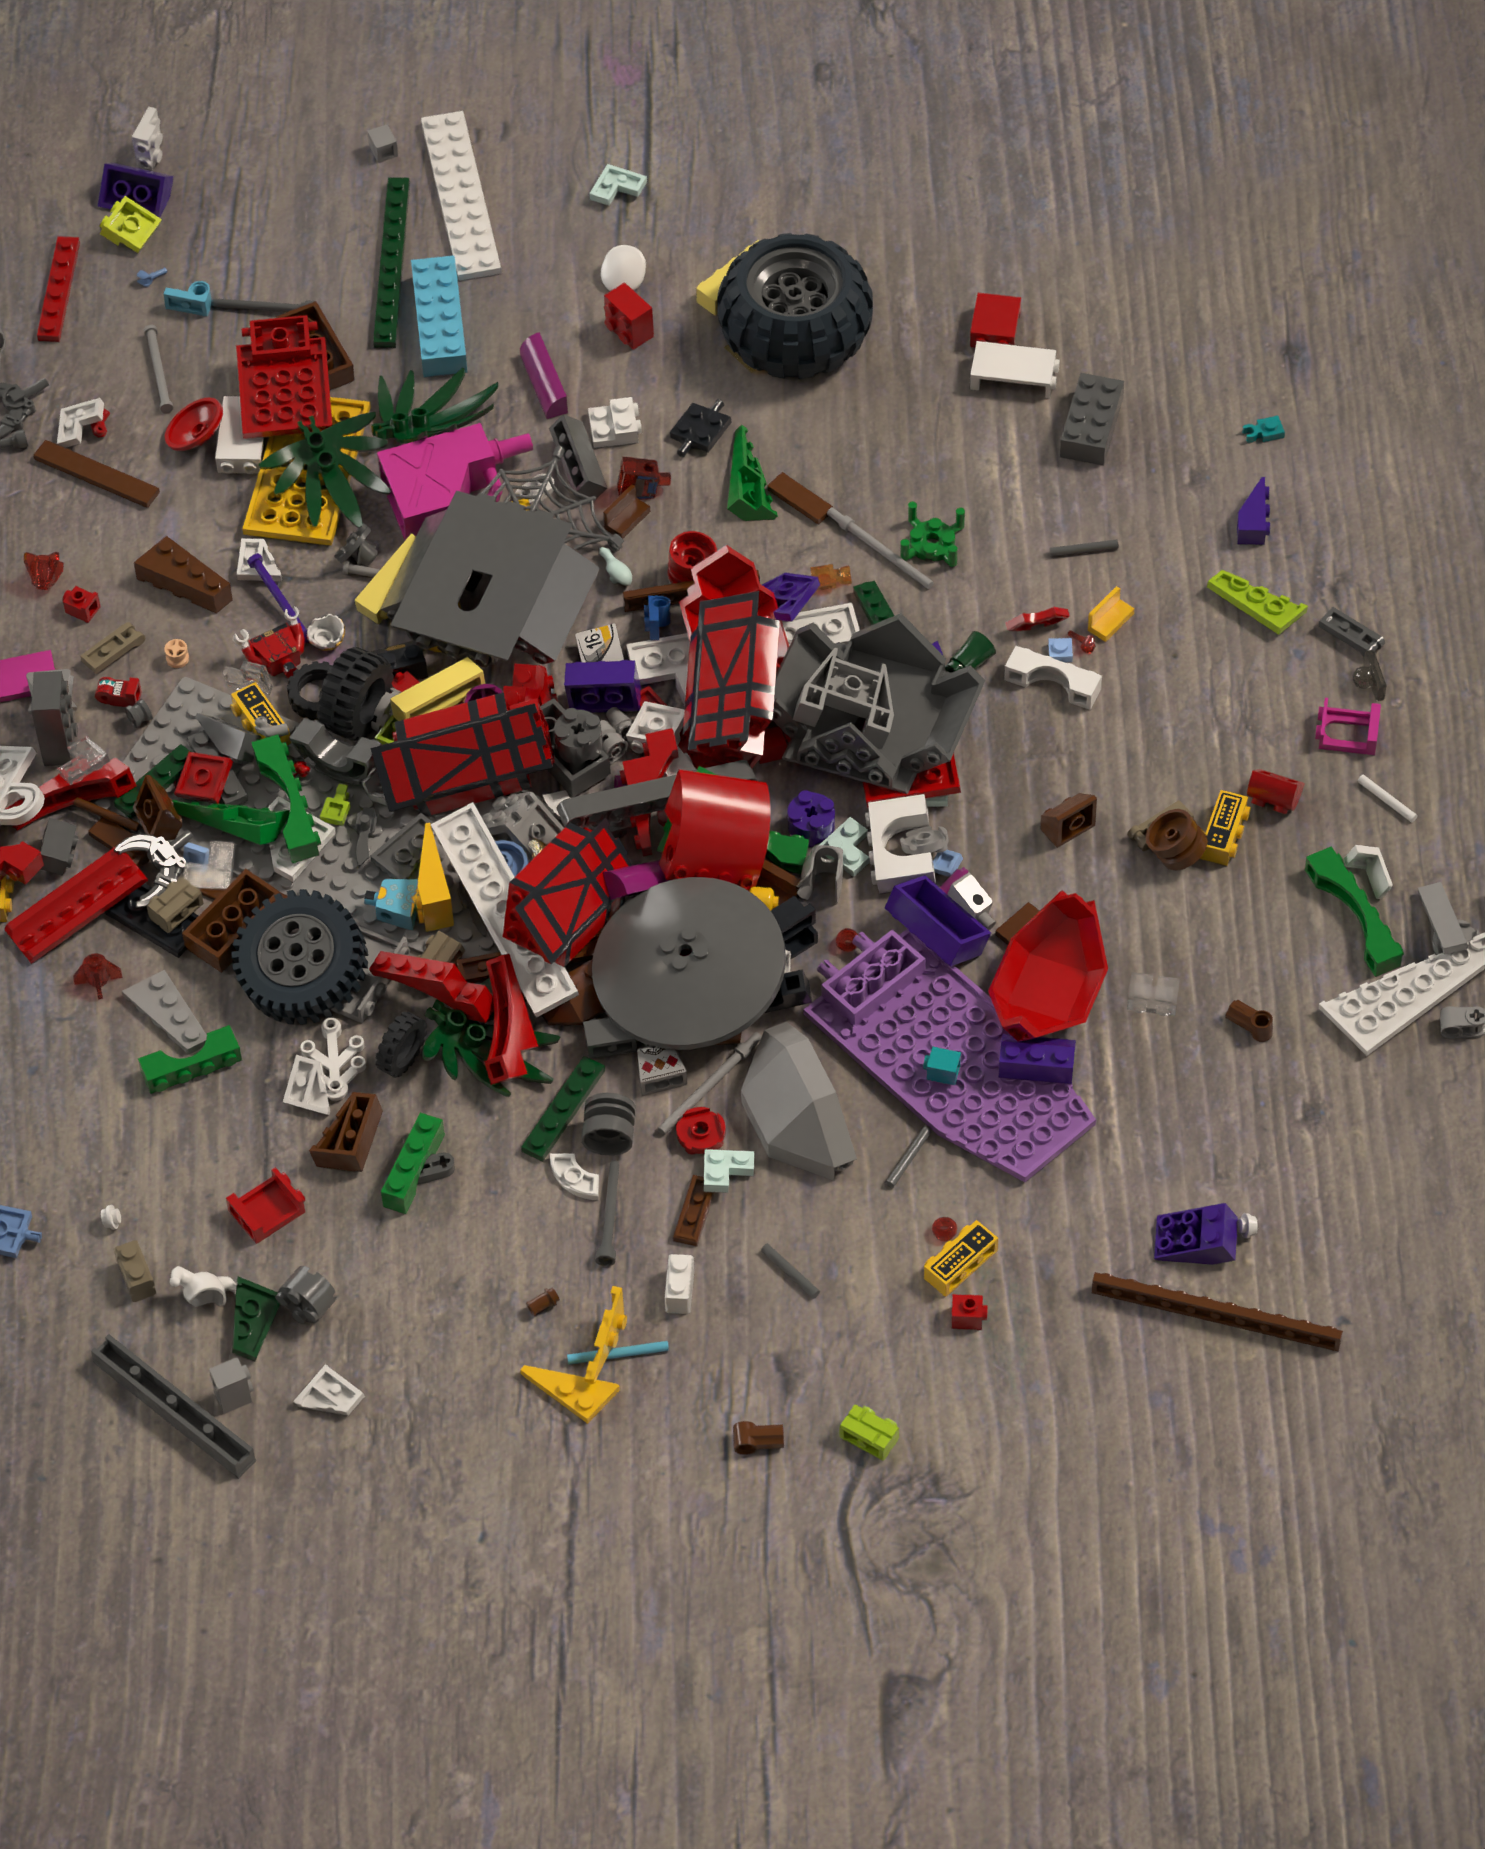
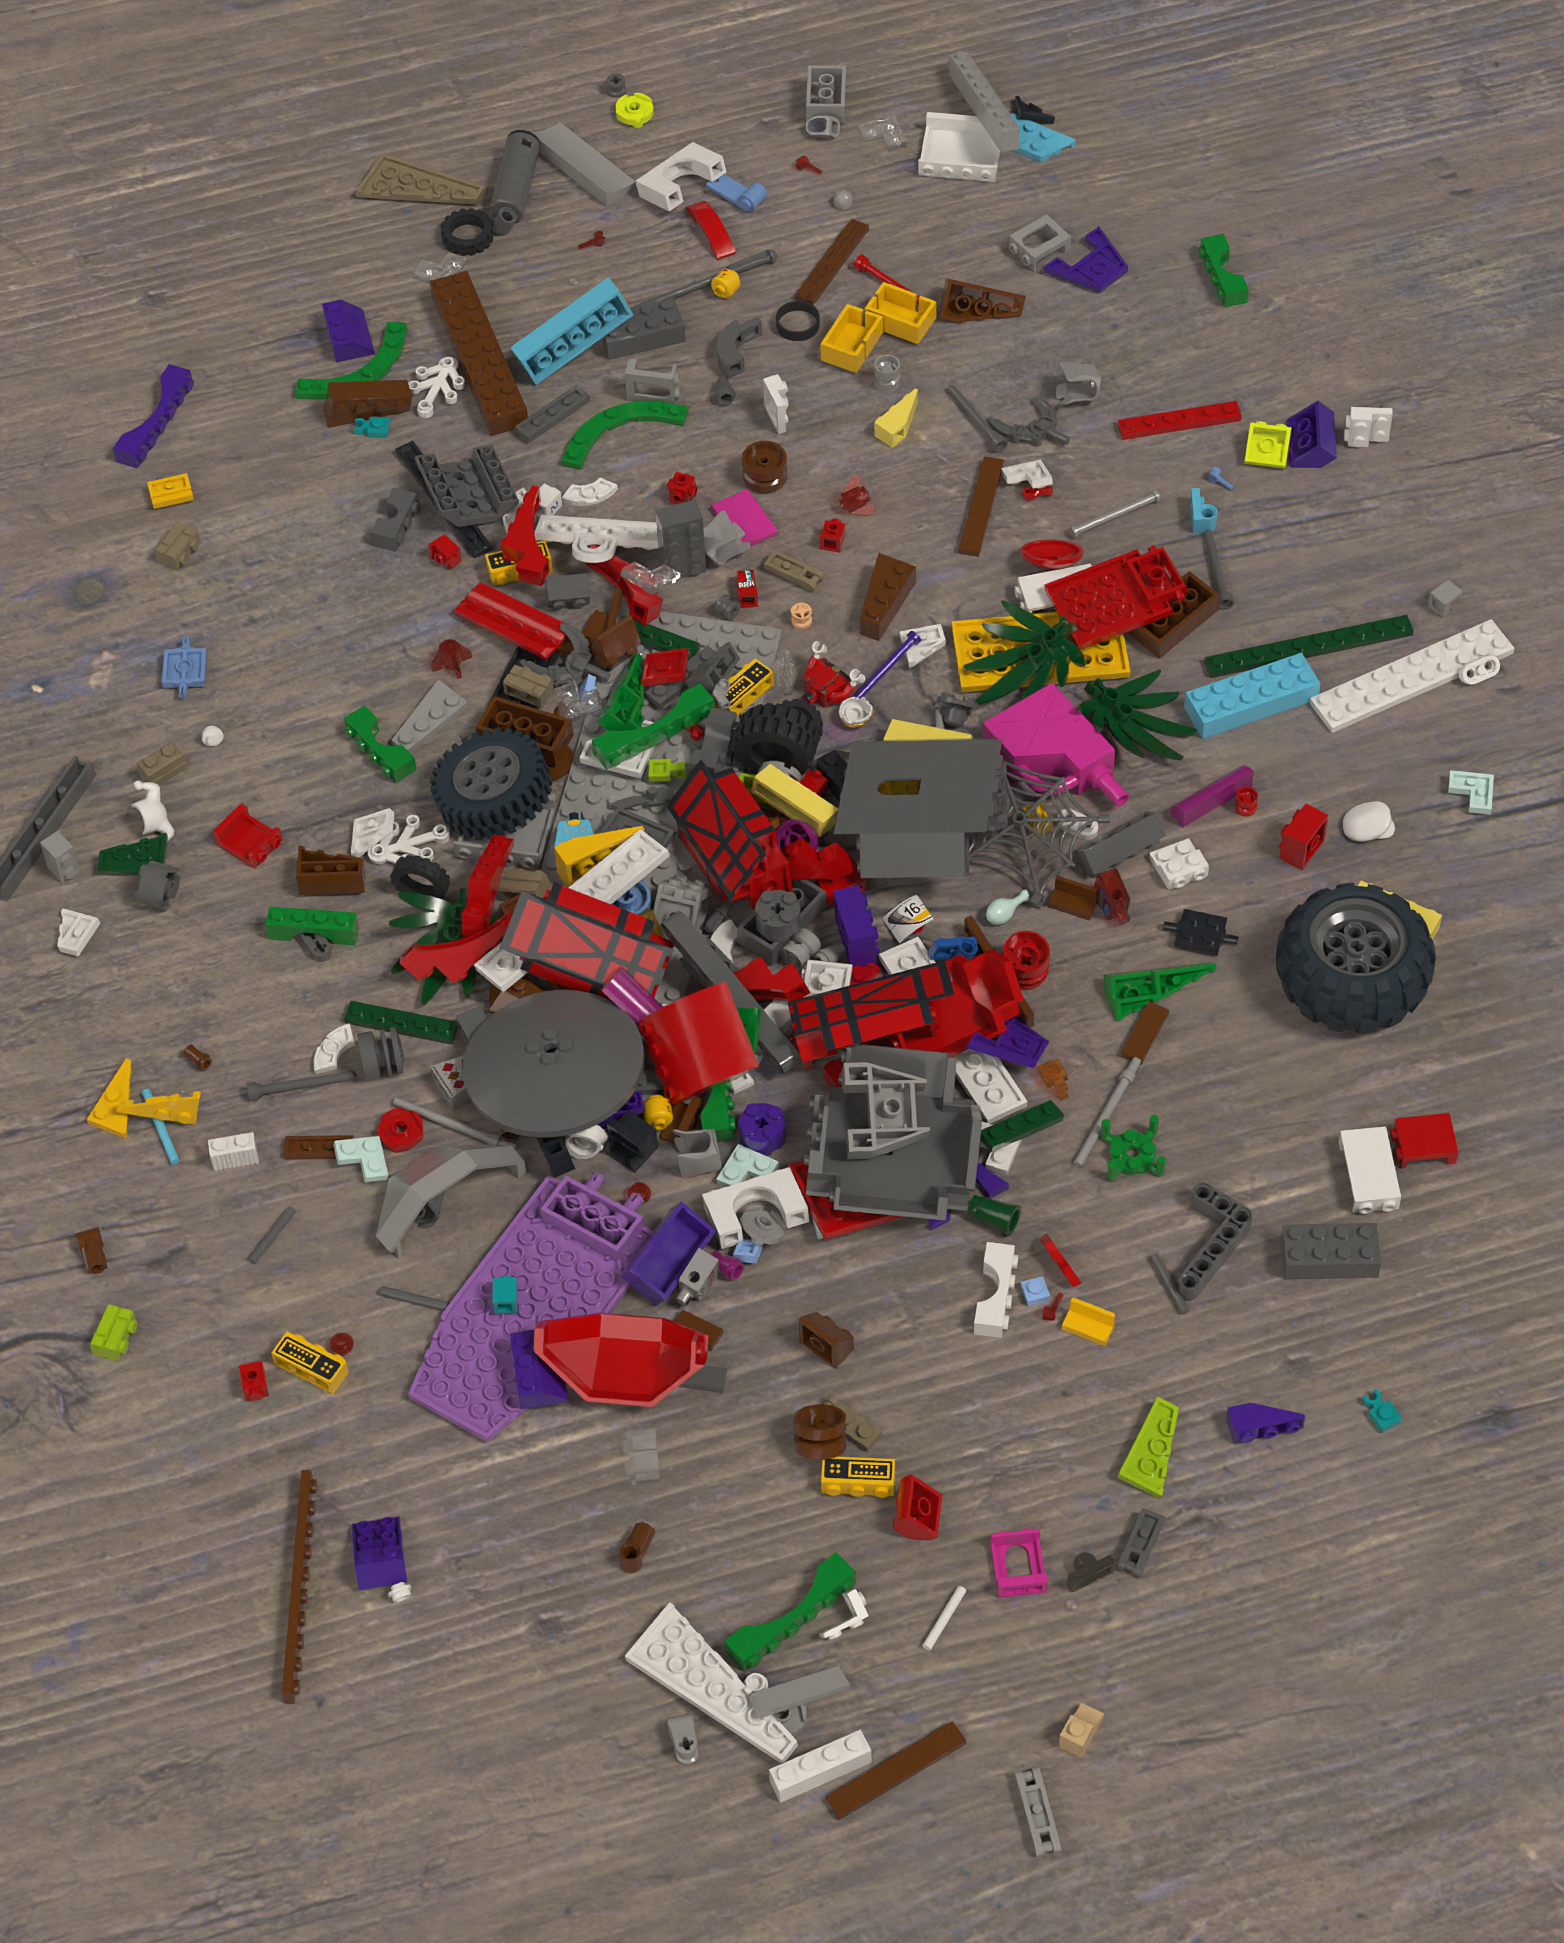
camera: 75 degrees right, 0 degrees up
(478, 142) = (1477, 669): none -> white plate
(563, 352) = (1246, 801): none -> red wheel
(1055, 493) = (1217, 1243): none -> dark grey beam
(1419, 954) = (756, 1682): none -> white plate

